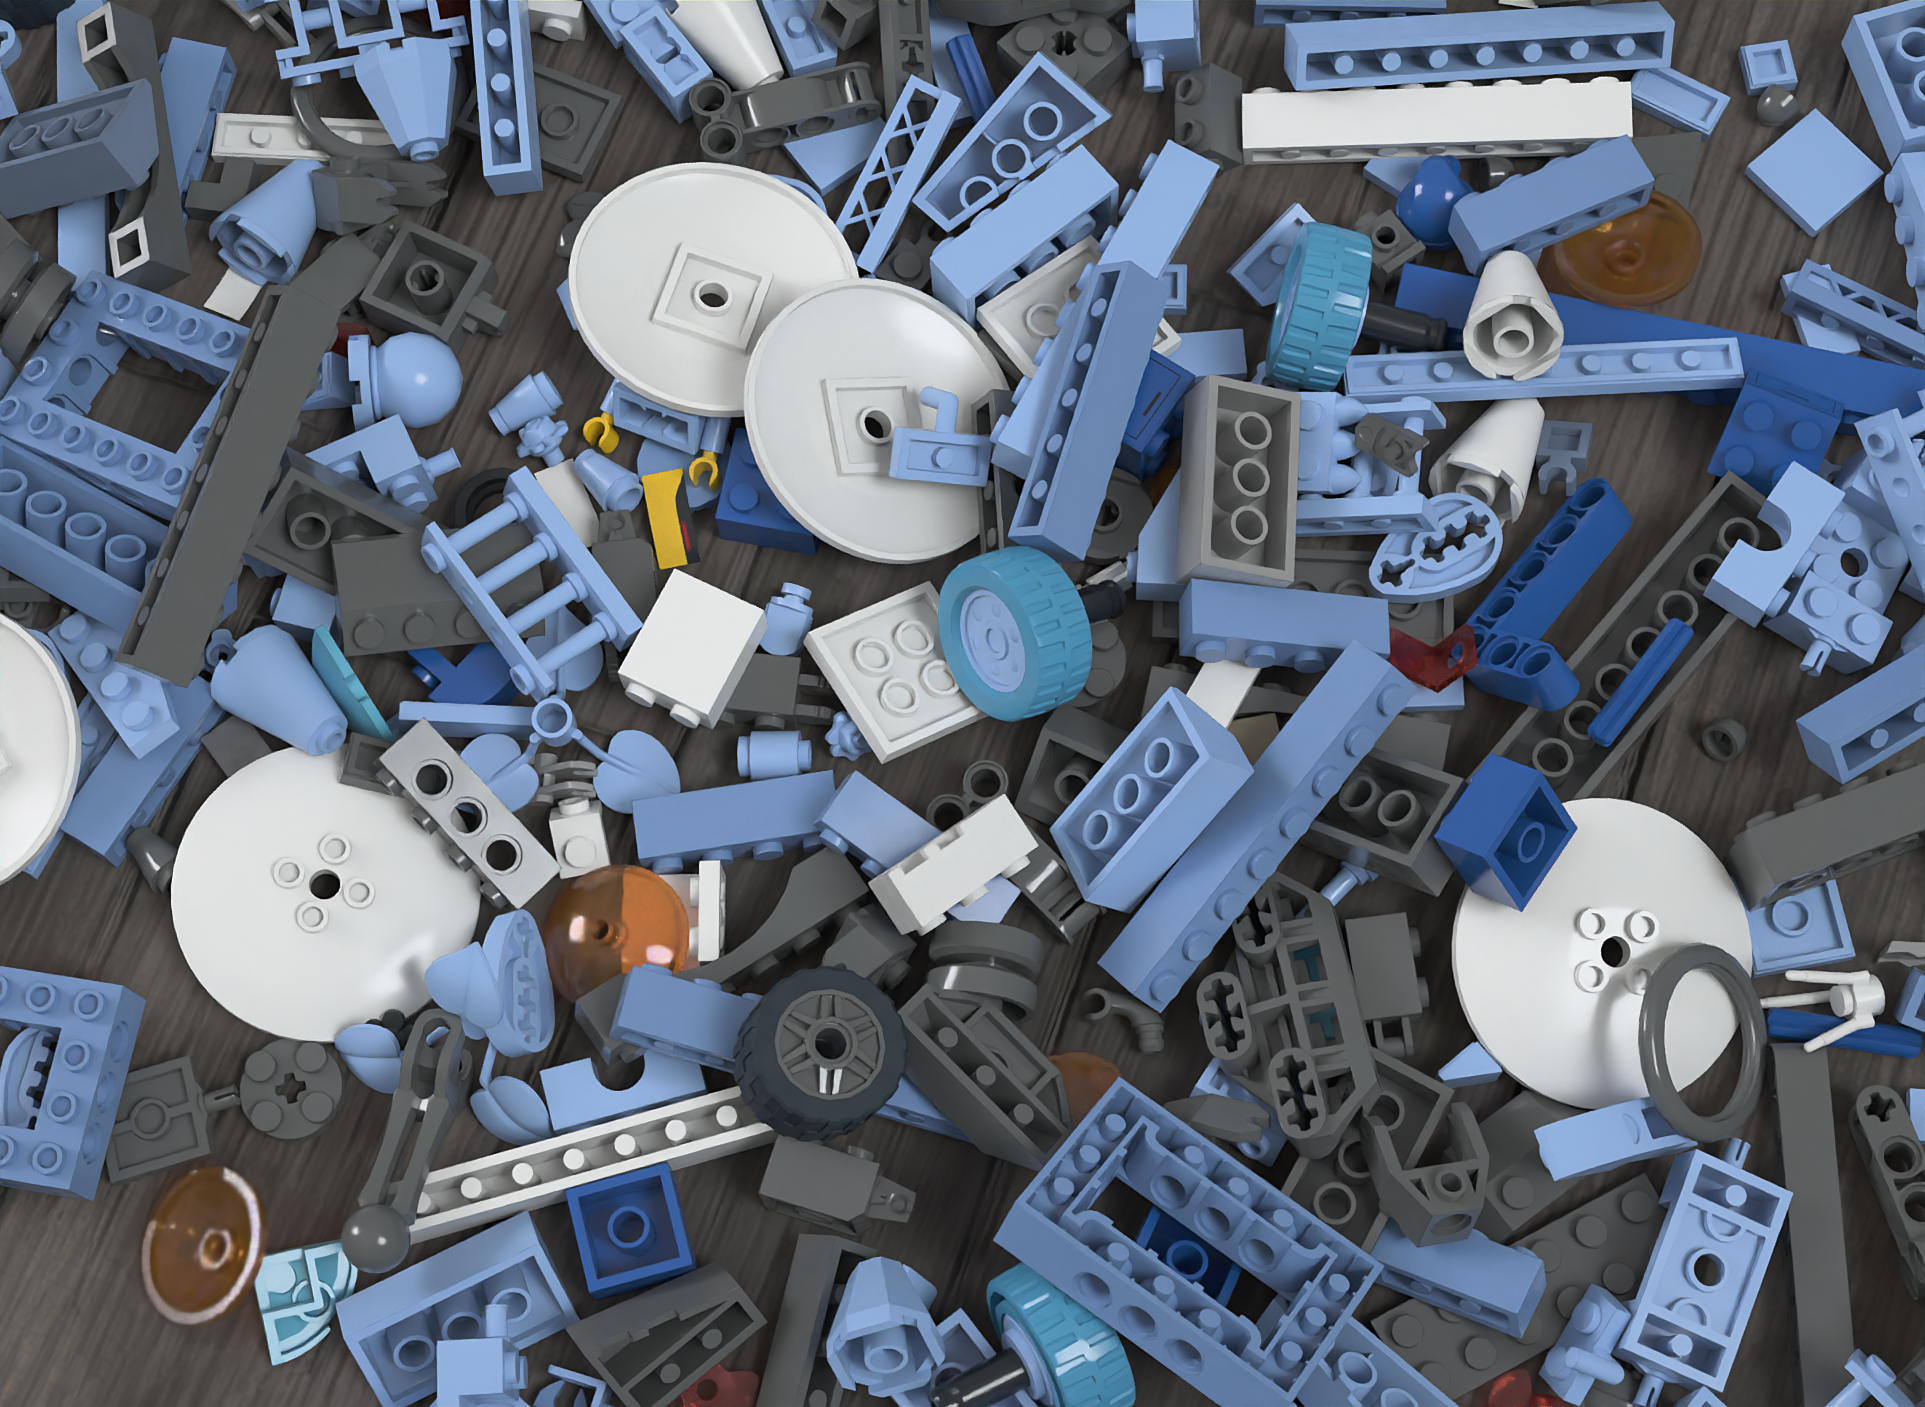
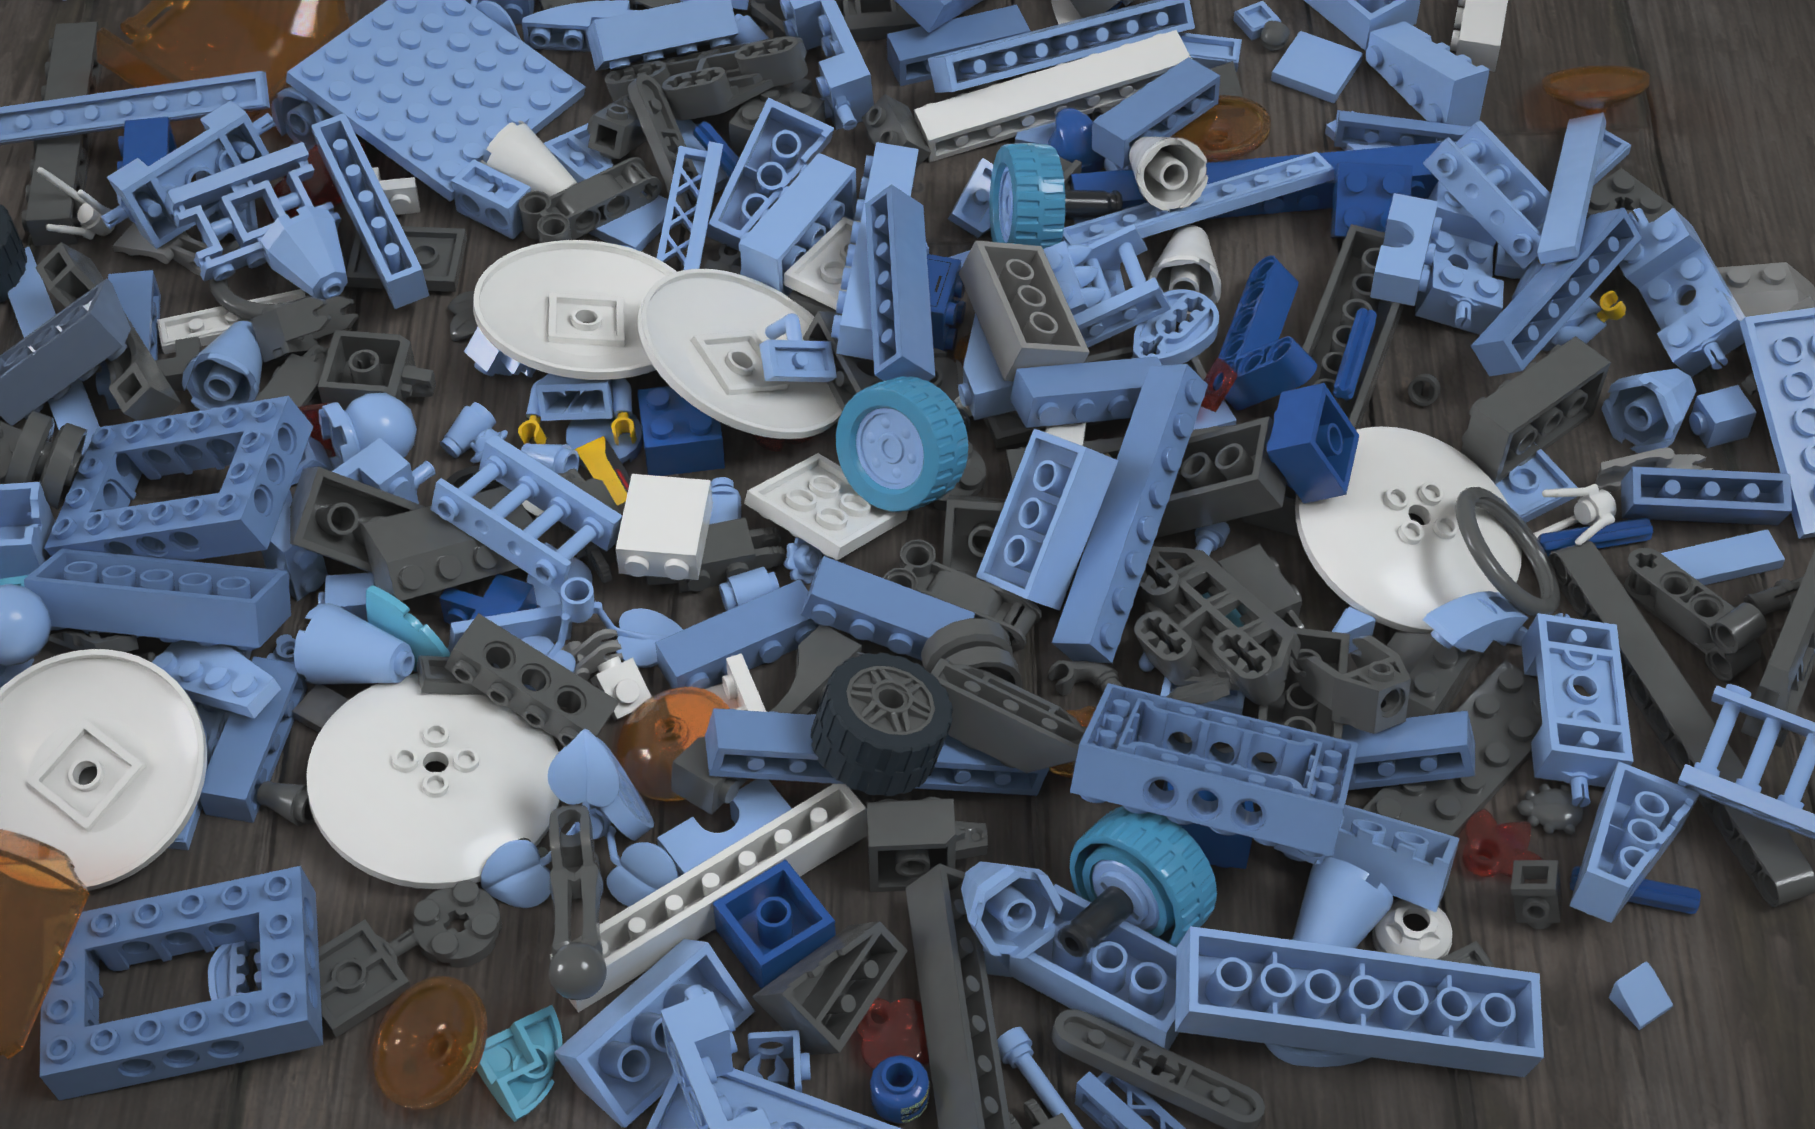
camera: 25 degrees left, 20 degrees down
(229, 486) = (272, 496): dark grey brick -> none
(954, 867) = (921, 597): white wedge -> none
(1390, 443) = (1116, 256): dark grey piece -> none
(1563, 452) = (1232, 256): sand blue plate -> none
(1586, 1346) = (1522, 769): light blue plate -> none

